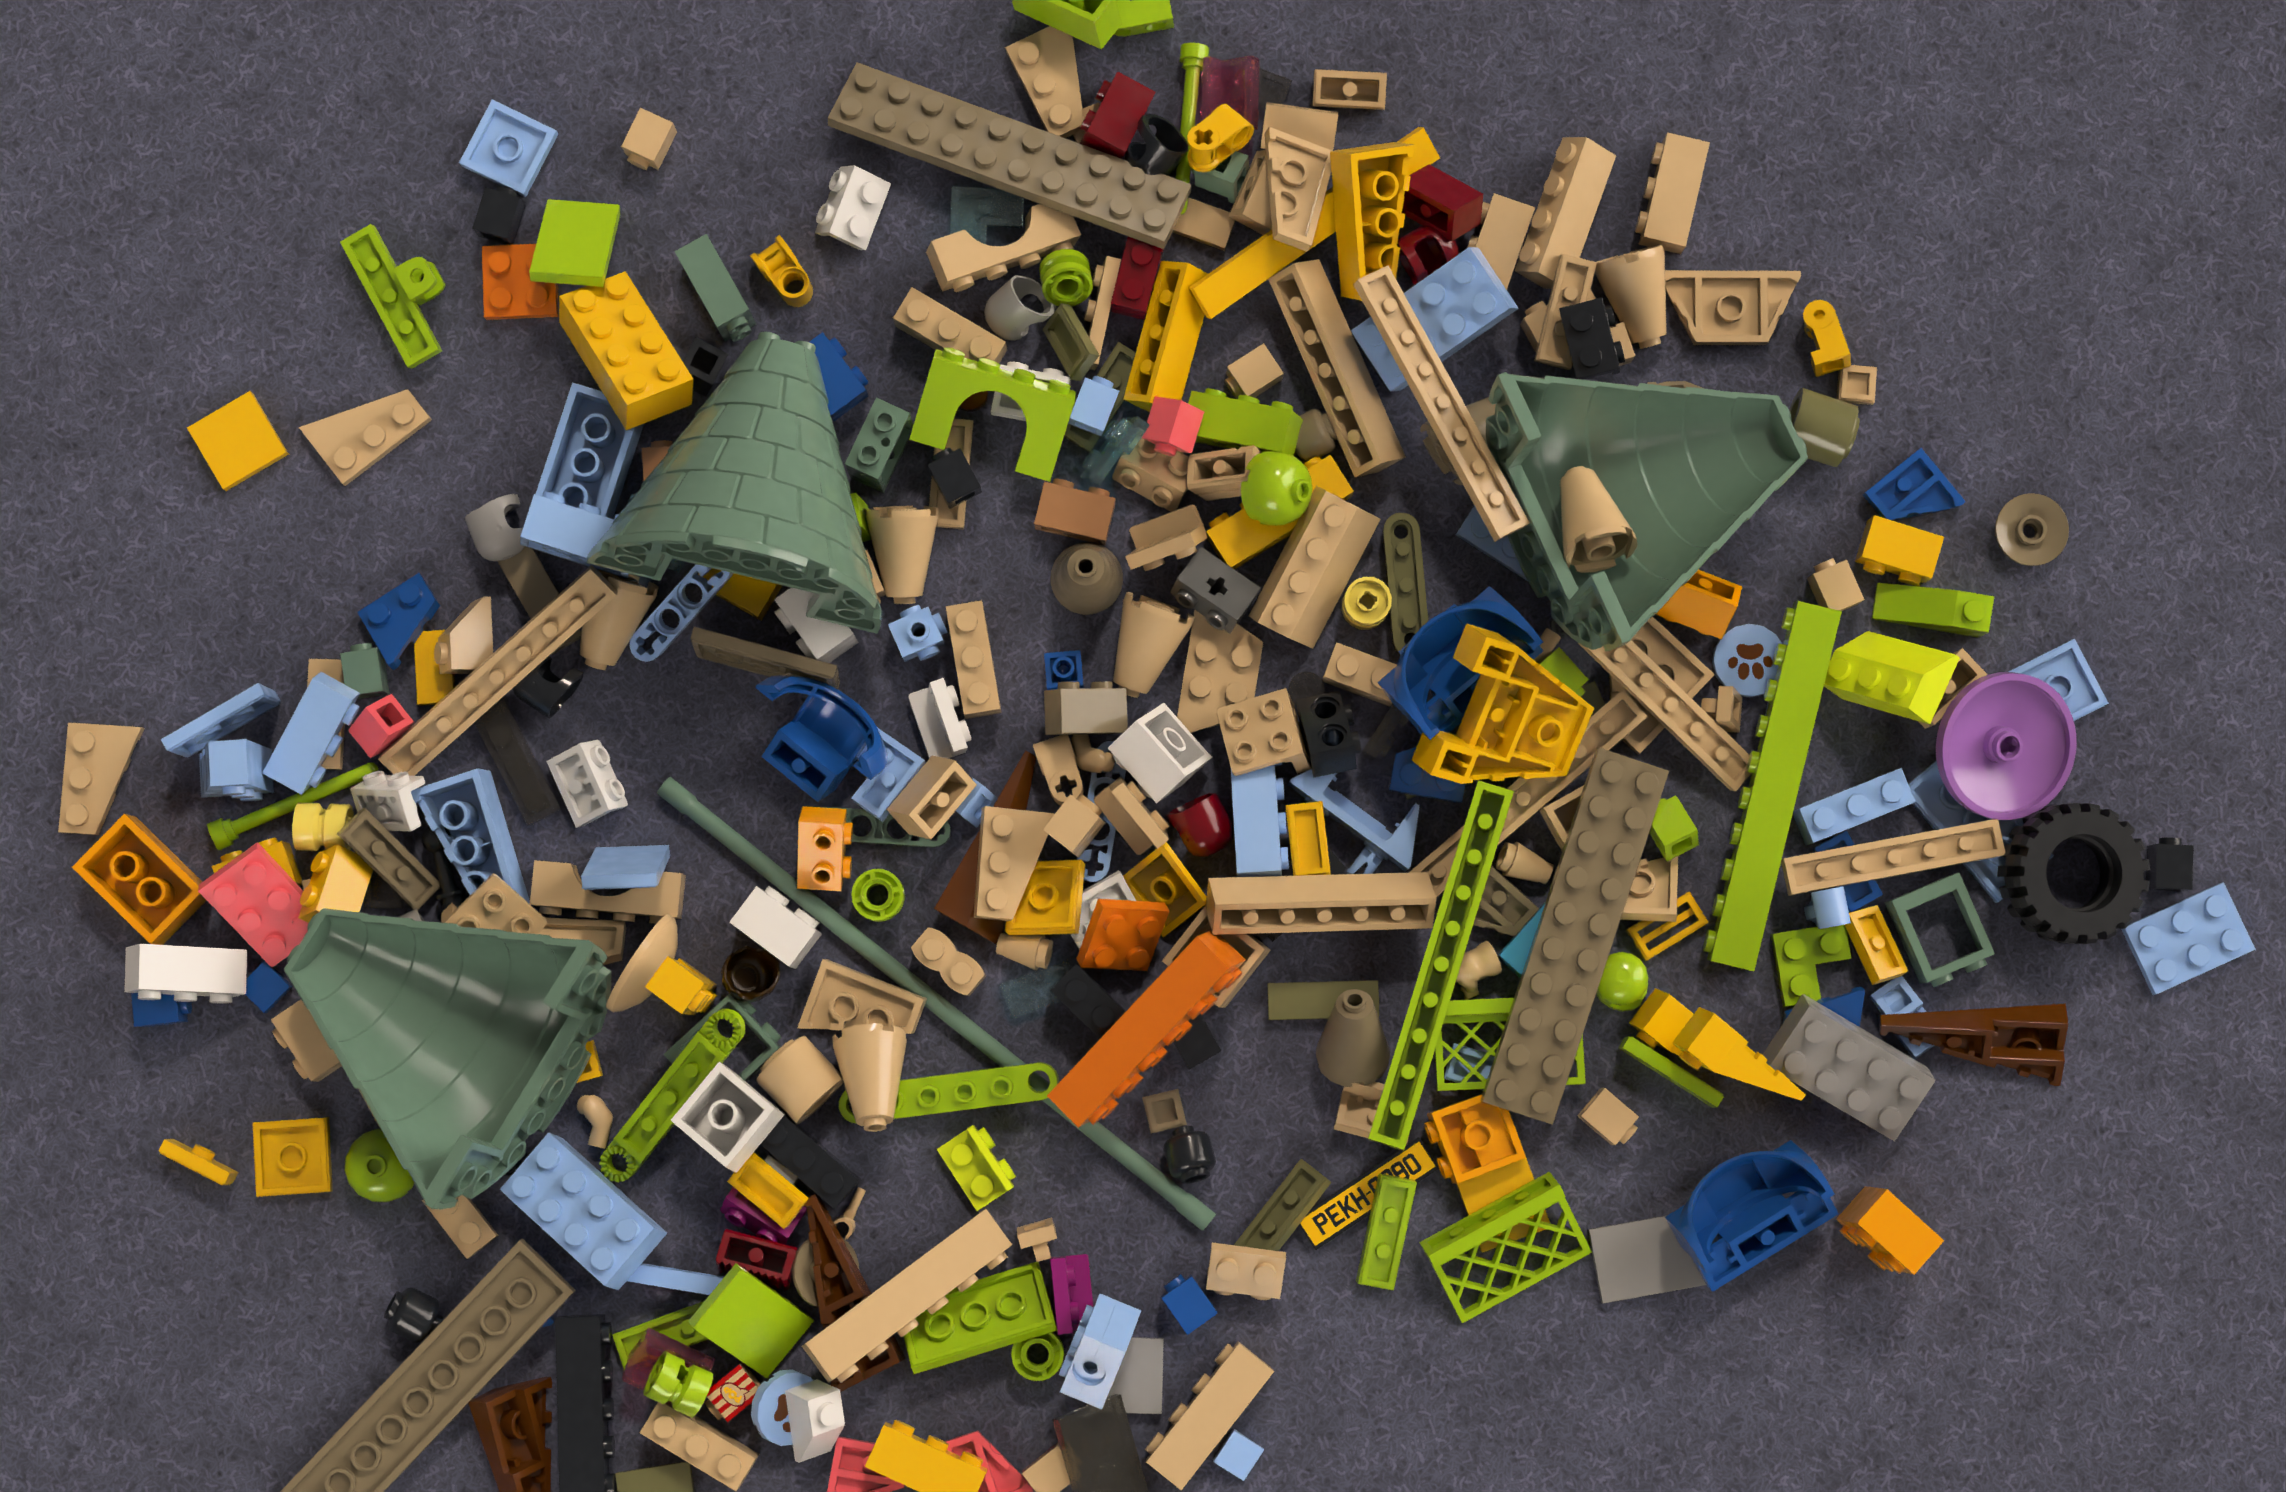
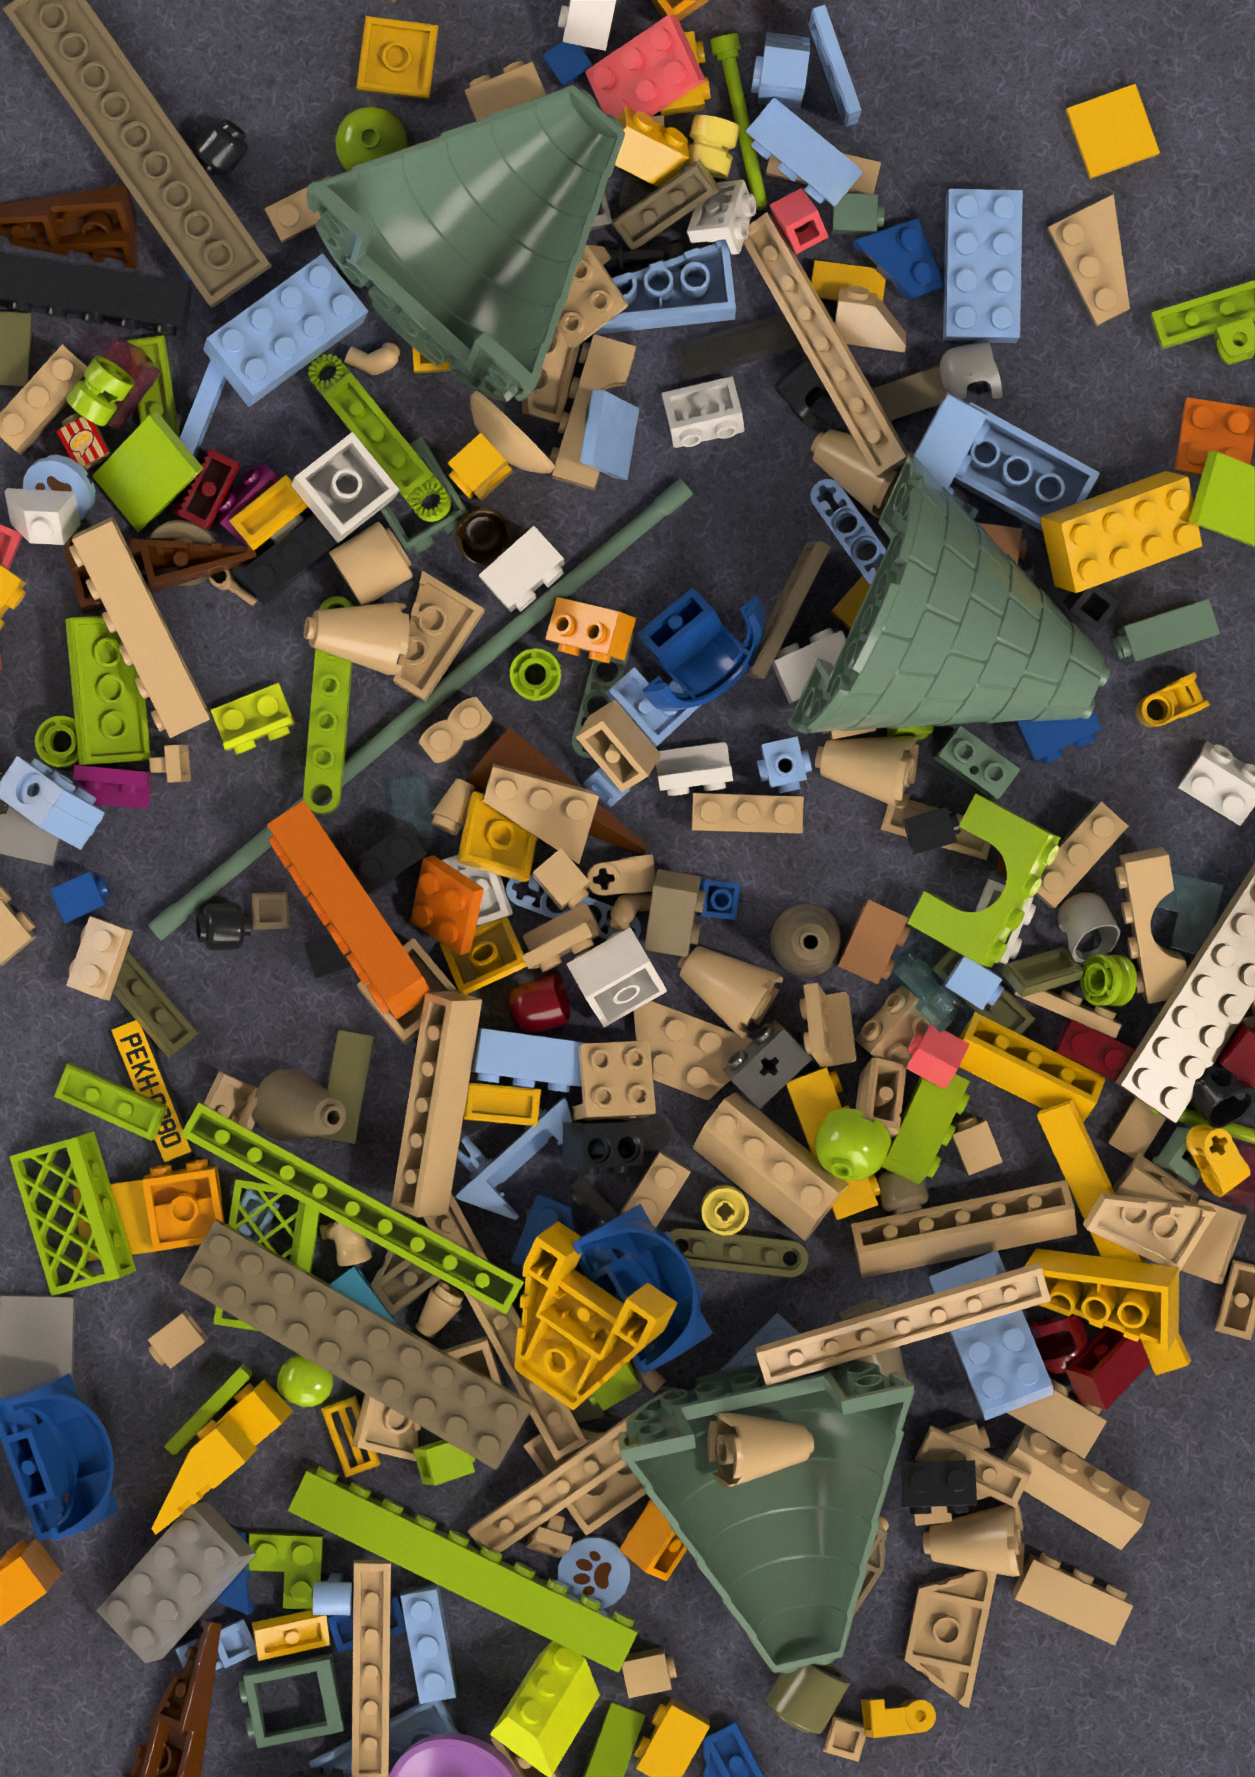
camera: 105 degrees right, 5 degrees up
(392, 538) = (982, 265): none -> light blue brick

